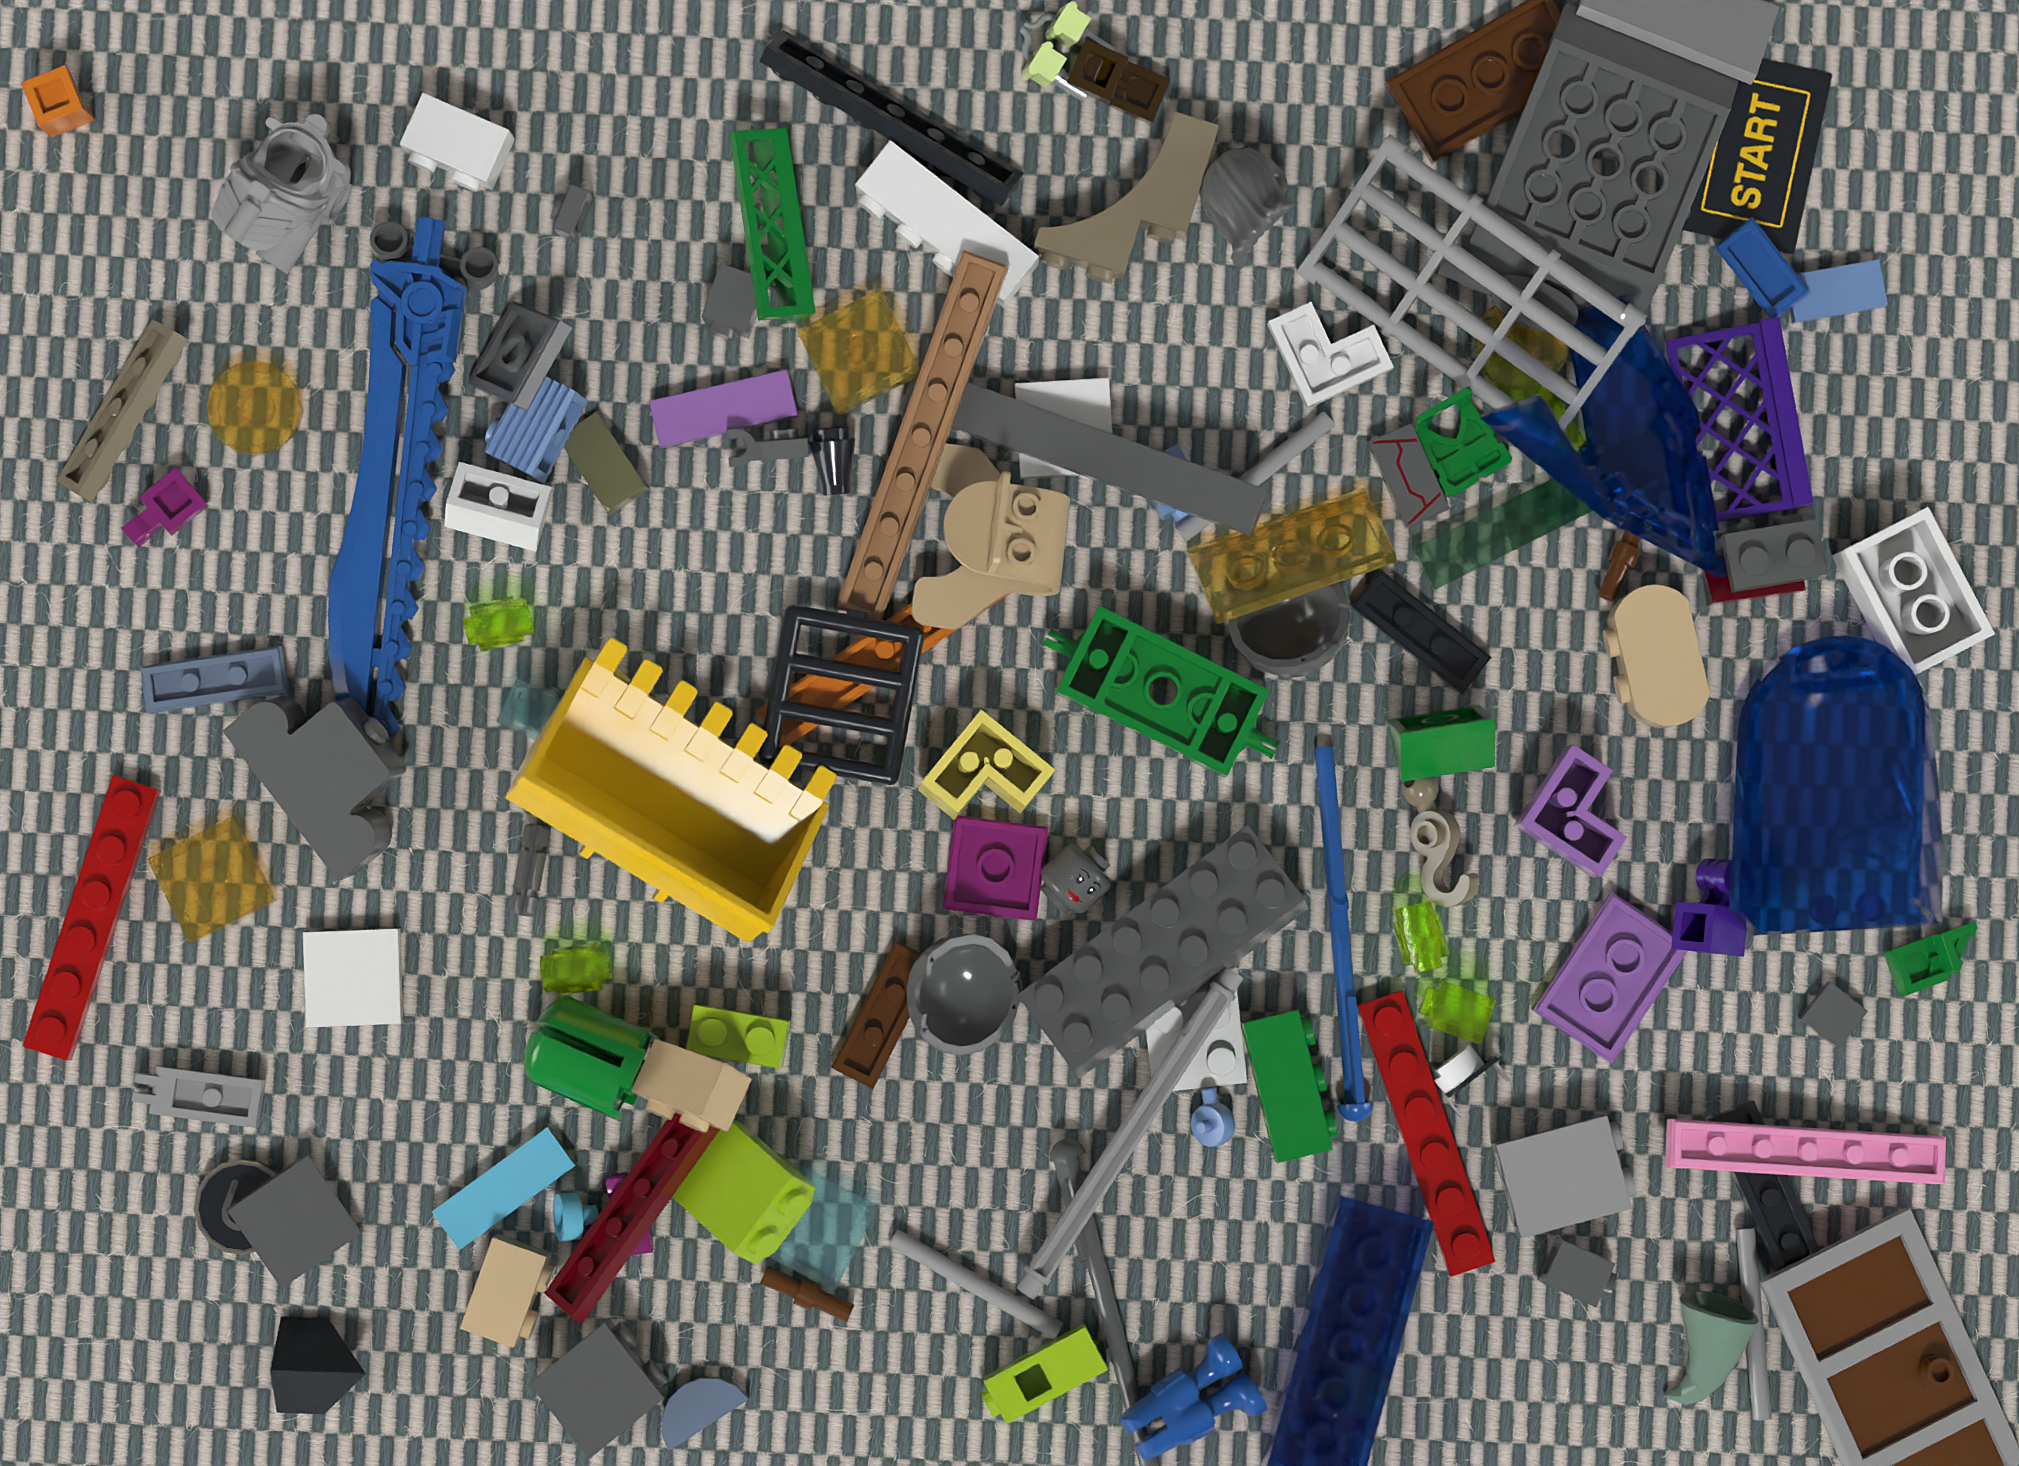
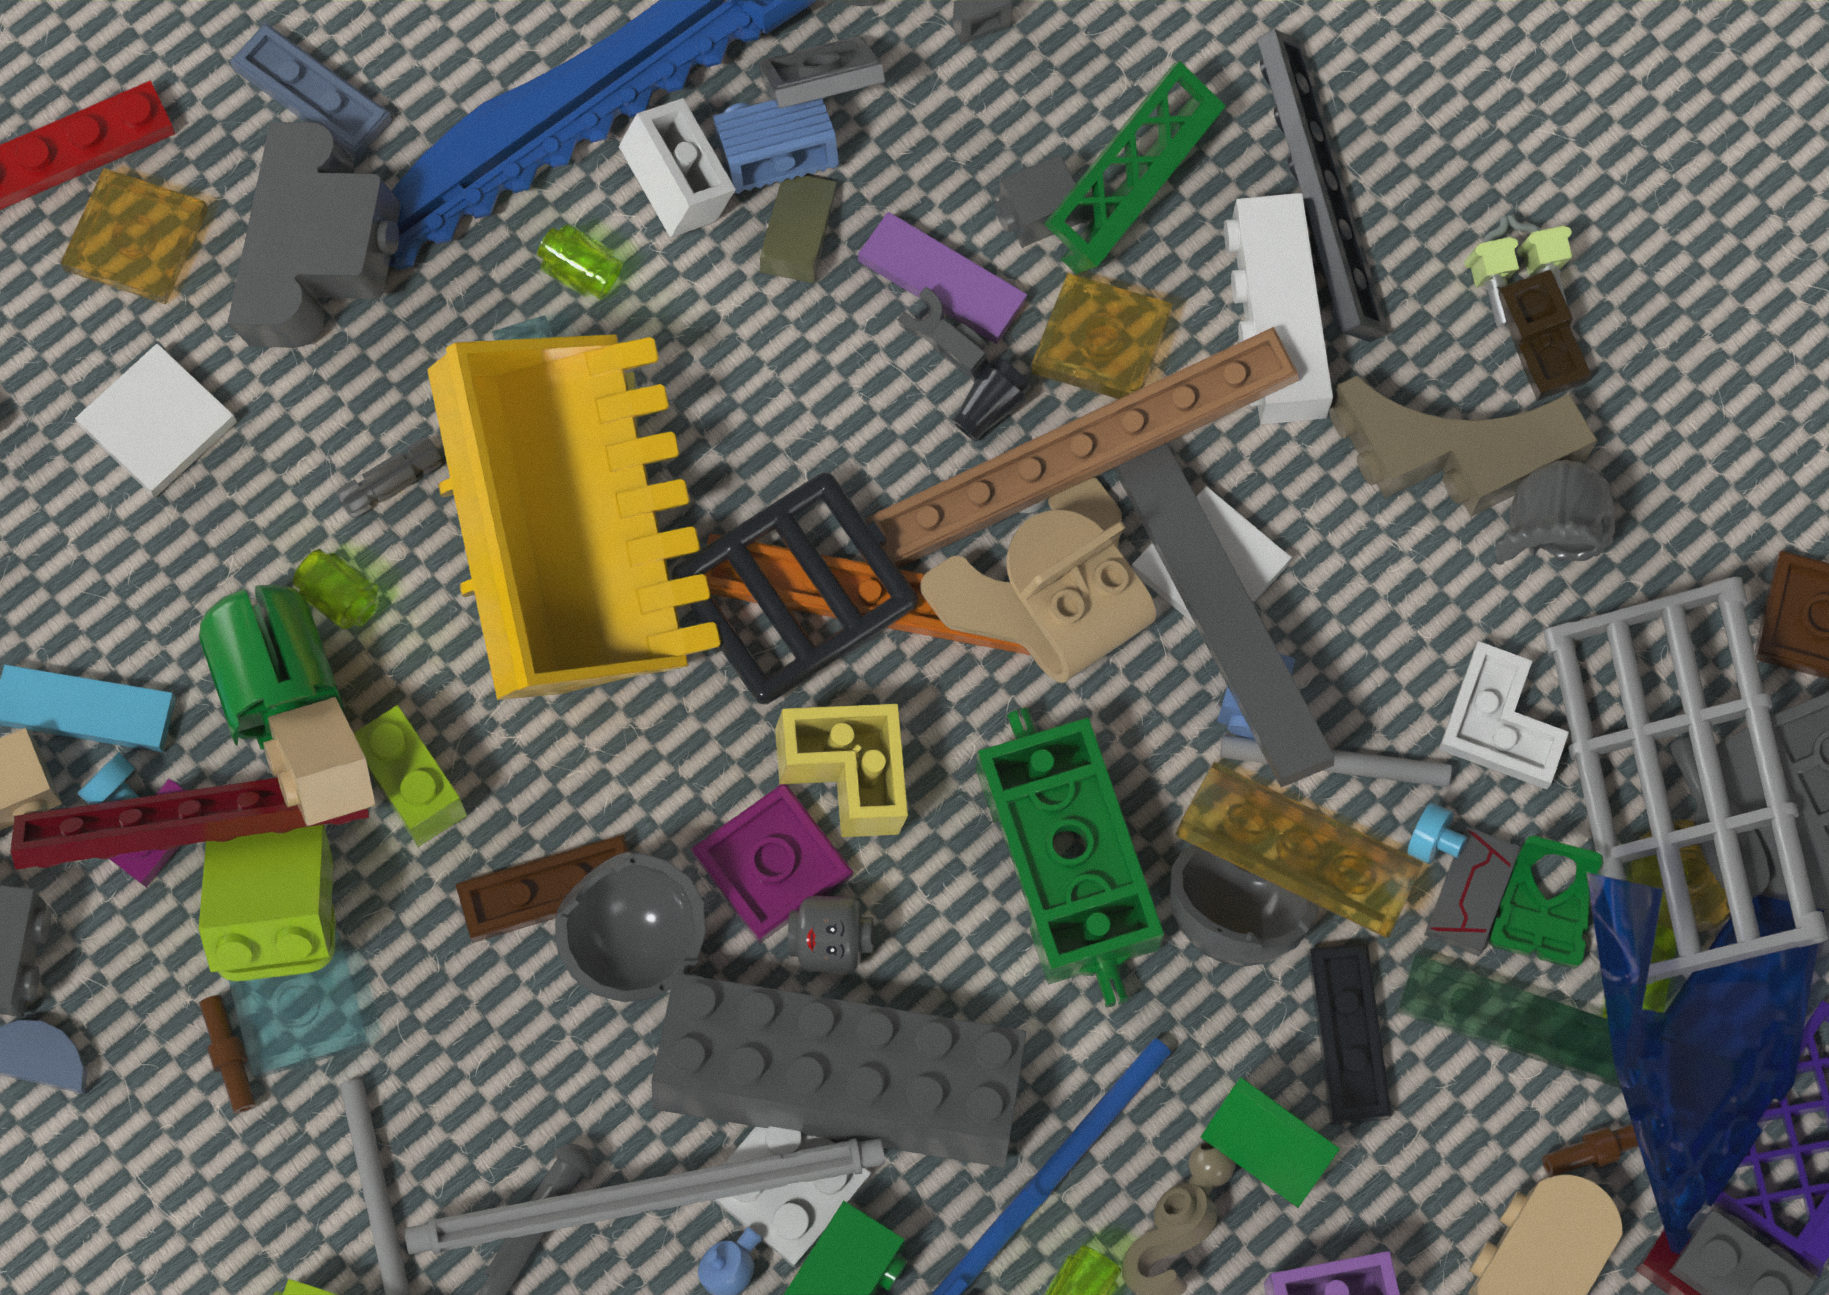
camera: 45 degrees right, 15 degrees down
(1357, 466) = (1434, 834): none -> medium azure tile

